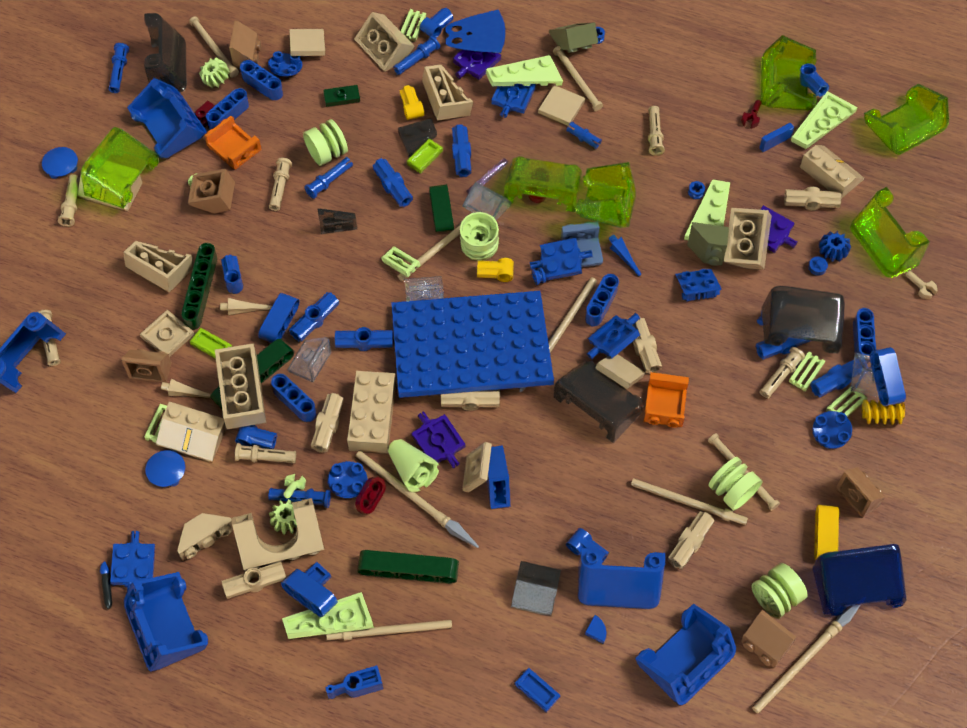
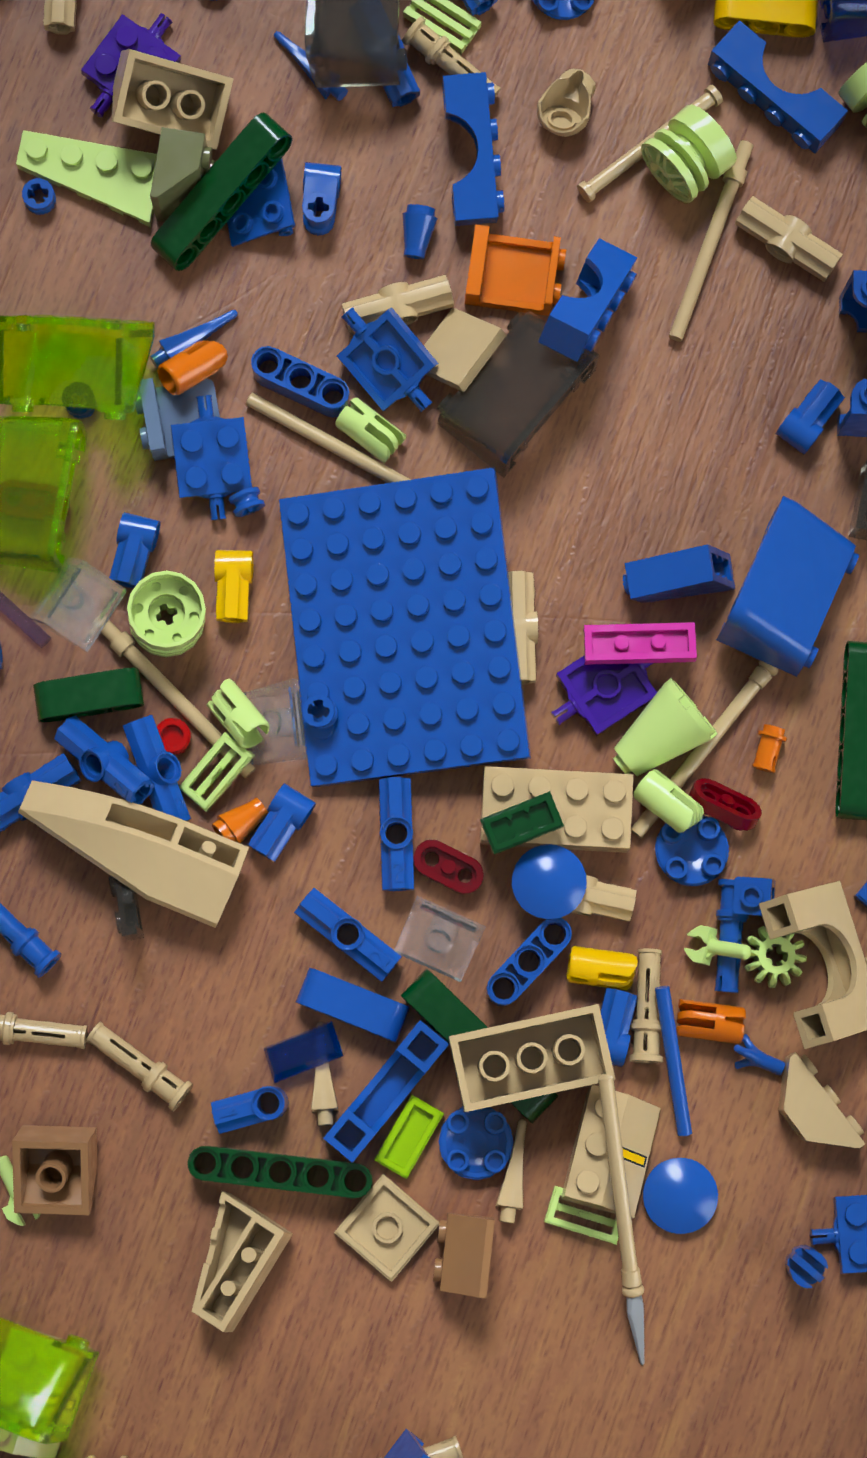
camera: 95 degrees left, 20 degrees up
(111, 442) = (630, 1272): none -> tan piece
(118, 522) = (805, 1265): none -> blue arm
(202, 373) = (476, 1142): none -> blue dish
(219, 319) = (386, 1091): none -> blue arch
(234, 506) = (757, 1058): none -> blue bar
(235, 464) = (673, 1060): none -> blue bar
(252, 233) = (153, 1075): none -> tan pin
(253, 487) = (710, 1021): none -> orange arm
(257, 297) = (303, 1052): none -> clear blue tile
(287, 431) = (601, 968): none -> yellow arm
(320, 503) = (751, 892): none -> blue bracket
(332, 402) = (549, 881): none -> blue dish
(344, 364) = (448, 867): none -> dark red plate
(360, 224) = (142, 848): none -> tan wedge
(362, 384) = (521, 823): none -> dark green plate
(372, 462) = (668, 801): none -> yellowish green arm
(374, 271) = (240, 821): none -> orange cone
(377, 291) = (286, 815): none -> blue piece
(400, 520) = (769, 748): none -> orange pin
(406, 211) = (104, 761): none -> blue piece
(413, 230) = (158, 765): none -> blue piece
(419, 245) = (175, 735): none -> red tile
(427, 297) = (327, 703): none -> blue bush
(428, 268) = (238, 714): none -> yellowish green arm
(458, 450) = (640, 643): none -> dark pink plate
(477, 467) = (673, 603): tan tile -> none
(489, 524) = (788, 589): none -> blue windscreen
(519, 229) = (135, 541): none -> blue piece
(578, 328) = (370, 429): none -> yellowish green arm
(608, 249) = (191, 366): none -> orange arm
(630, 412) = (576, 321): none -> blue arch
(686, 355) = (418, 229): none -> blue cone
(700, 261) = (221, 191): none -> dark green beam
(703, 309) = (320, 193): none -> blue piece
(755, 376) = (467, 104): none -> blue arch
(761, 426) = (567, 103): none -> tan hair
(795, 519) = (807, 116): none -> blue arch

